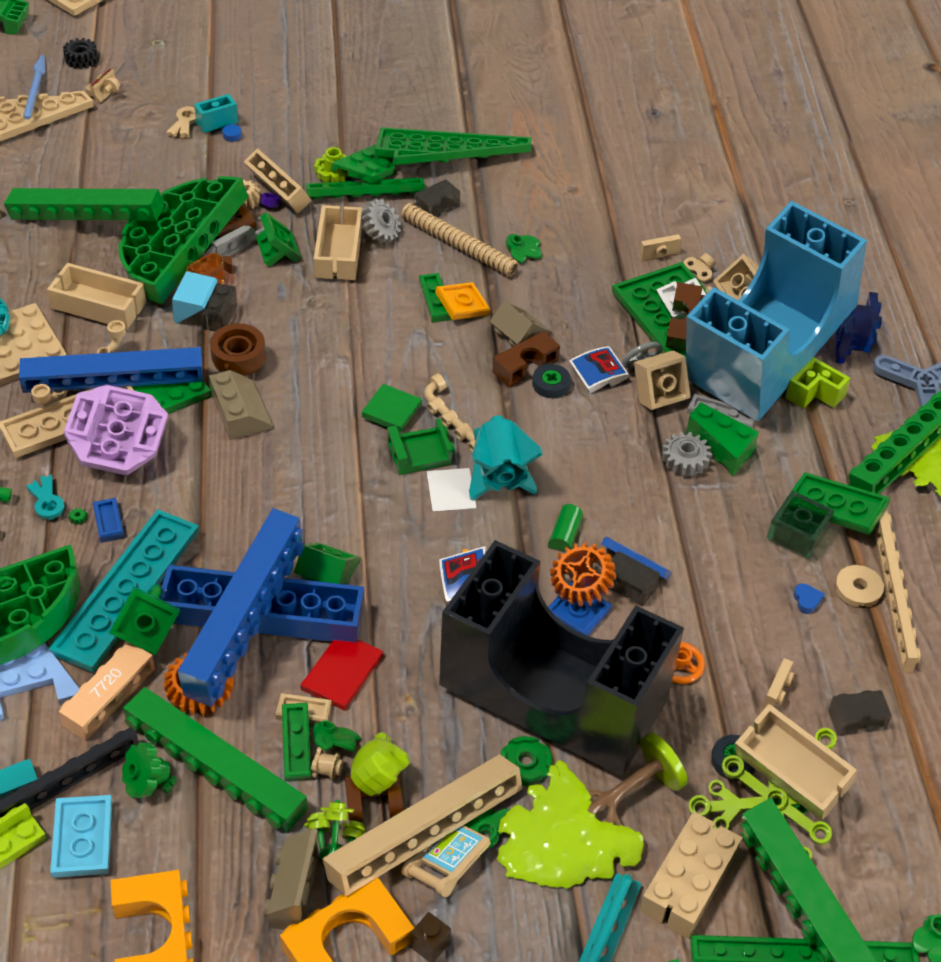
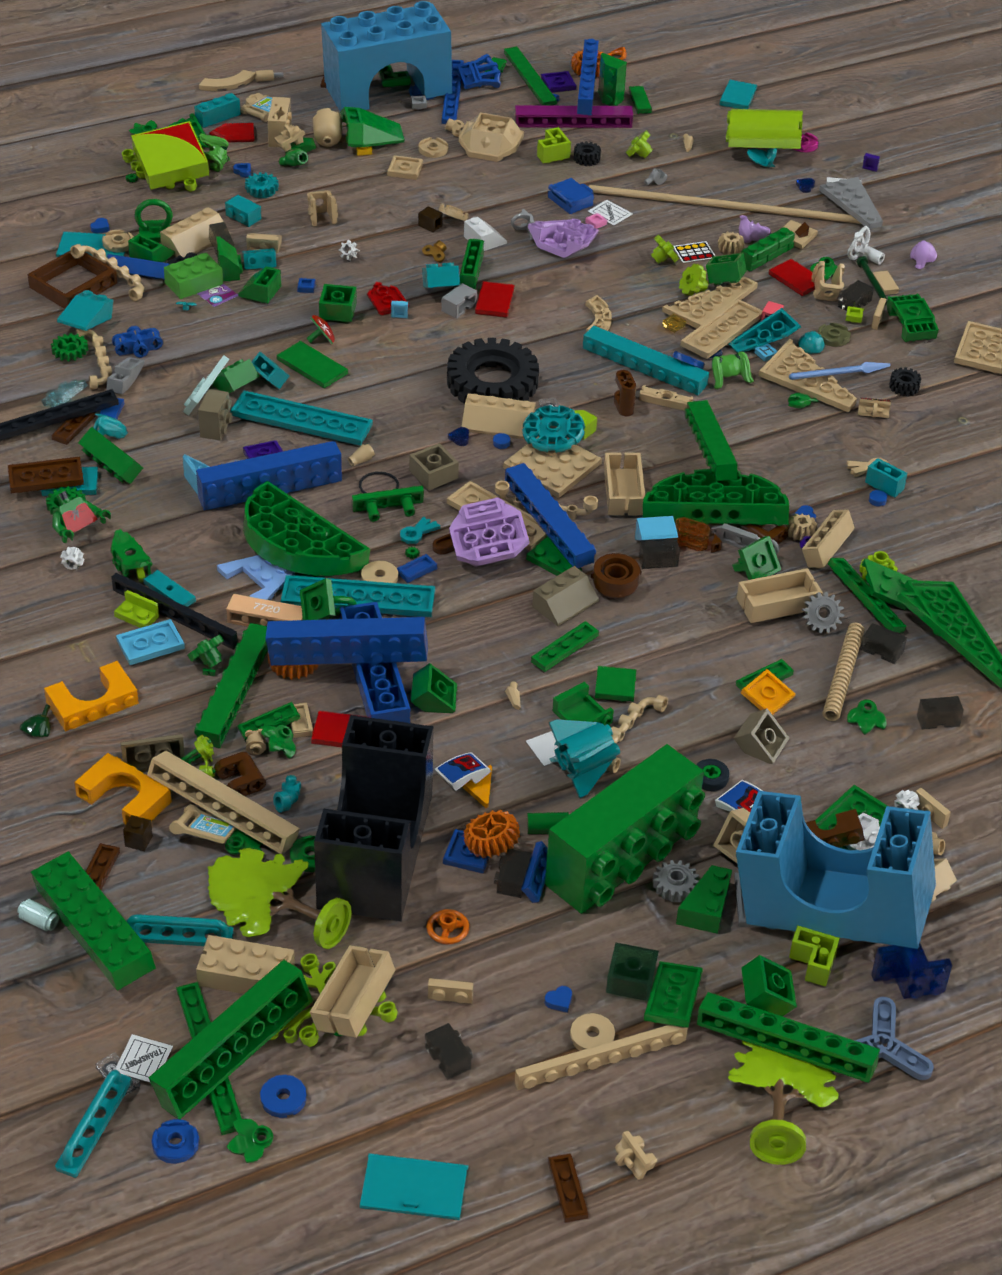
camera: 70 degrees right, 5 degrees down
(52, 128) = (800, 400): none -> green hand
(83, 479) = (443, 545): none -> reddish brown tile
(97, 547) = (384, 568): none -> tan tile
(314, 430) = (564, 646): none -> green plate
(362, 497) = (513, 695): none -> tan bar
(378, 765) = (264, 759): lime piece -> none
(436, 760) = (291, 790): none -> teal arm
(511, 364) = (711, 741): reddish brown arch -> none
(546, 197) = (940, 711): none -> clear smoke brick
(636, 457) = (624, 829): none -> green brick
(648, 259) = (907, 800): none -> white gear
(853, 429) = (768, 986): none -> green brick
(891, 881) = (283, 1084): none -> blue tile

